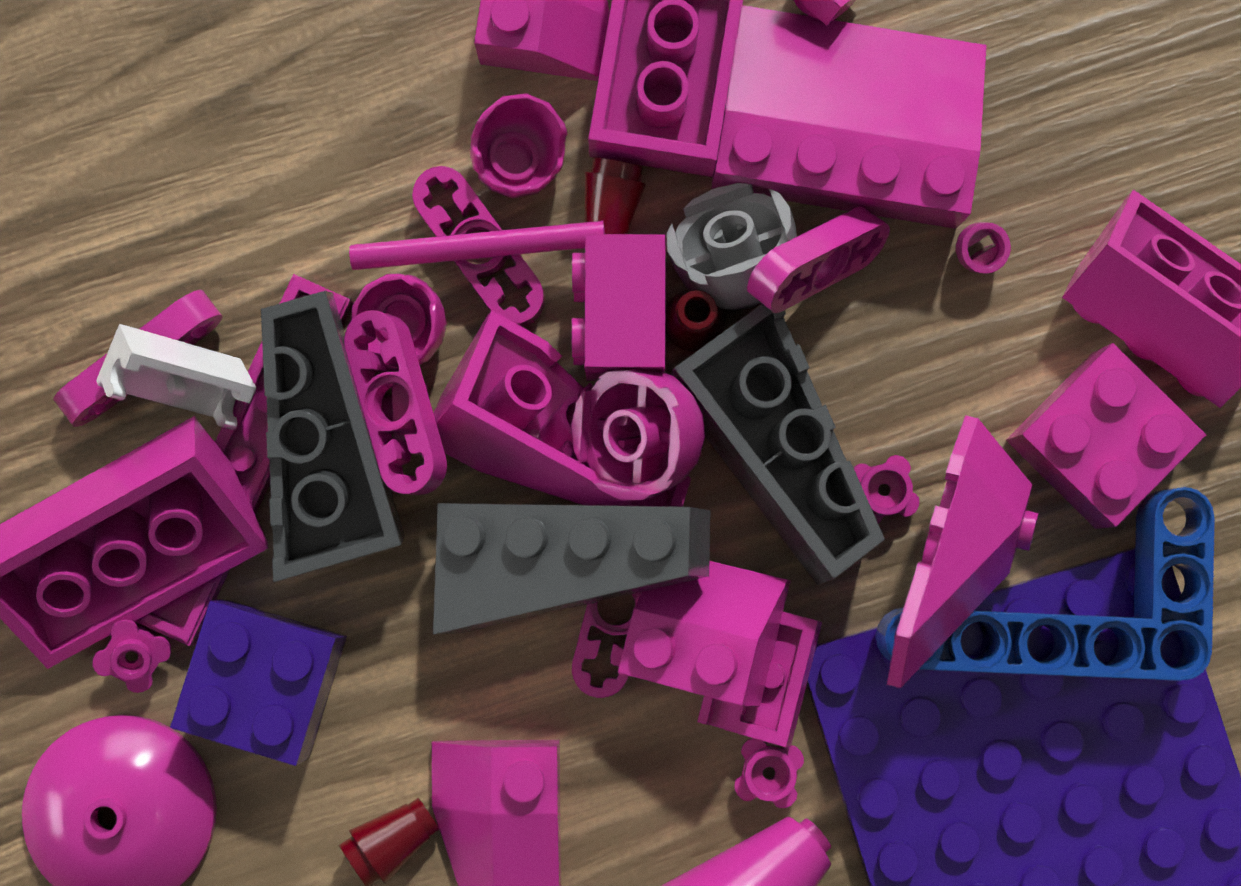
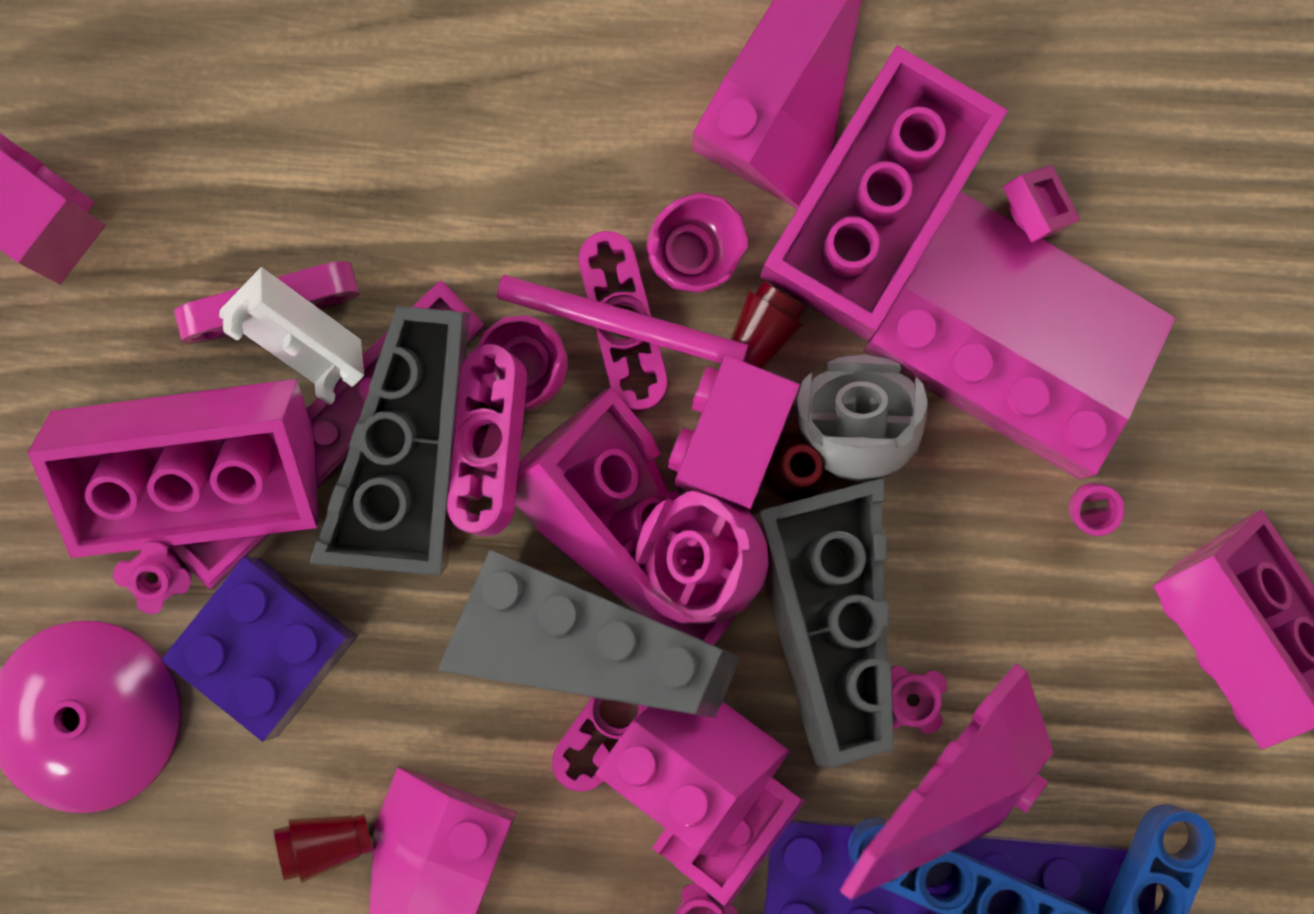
camera: 25 degrees right, 0 degrees up
(817, 259) = (935, 460): dark pink beam -> none
(1106, 437) = (1141, 734): dark pink brick -> none

